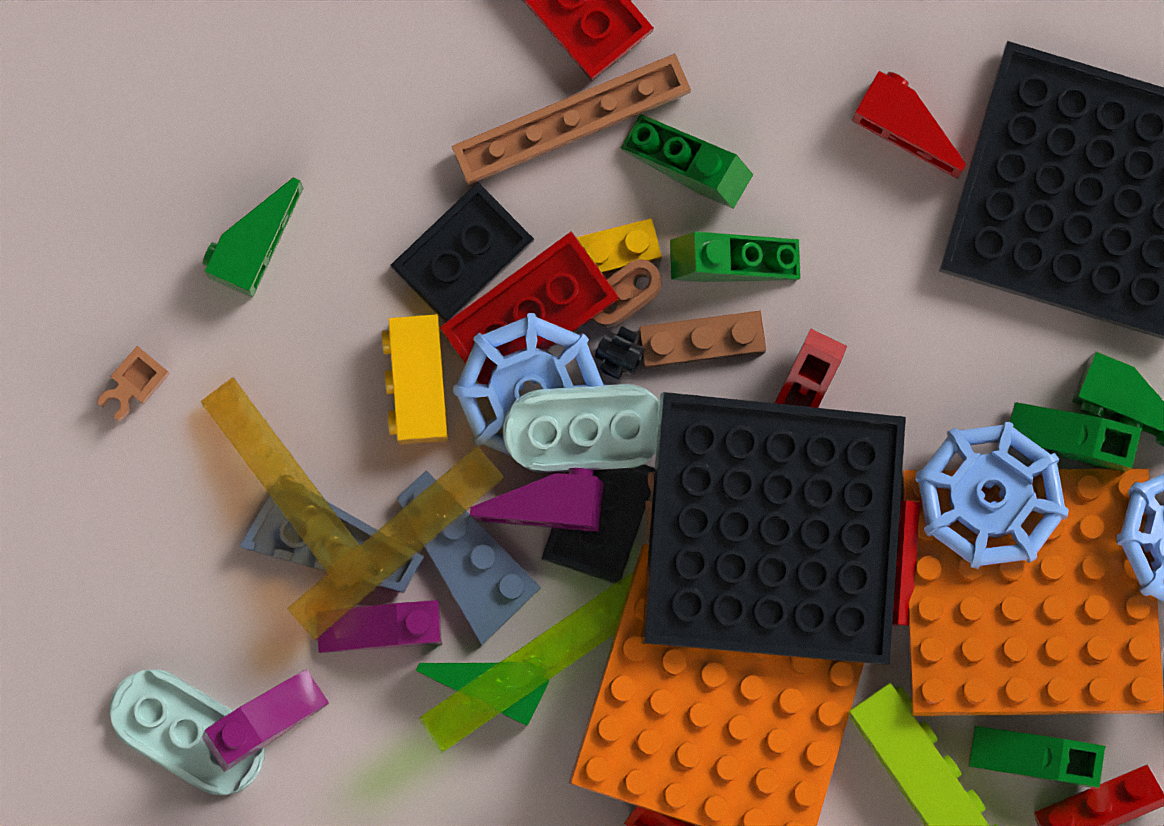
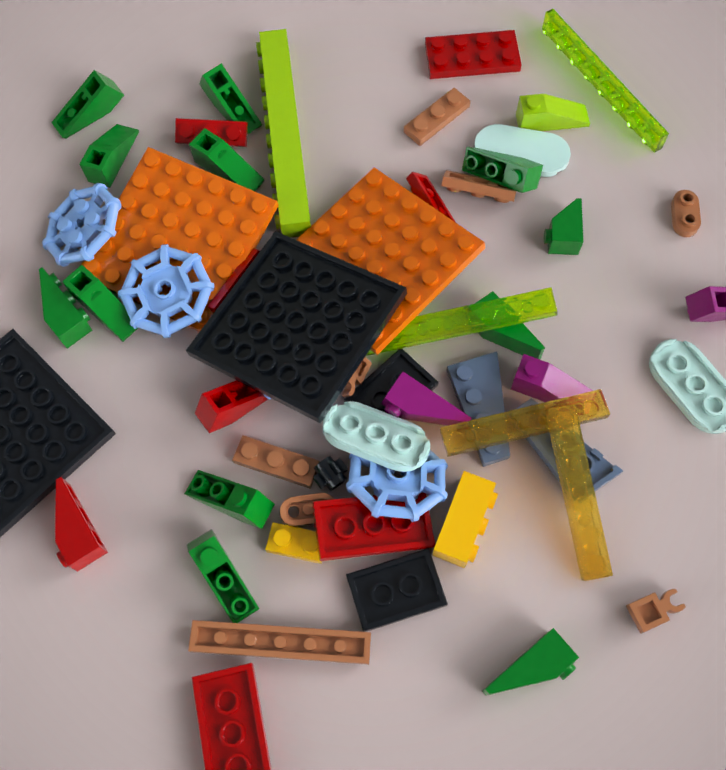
camera: 145 degrees left, 15 degrees down
(263, 719) = (649, 363): magenta slope -> none

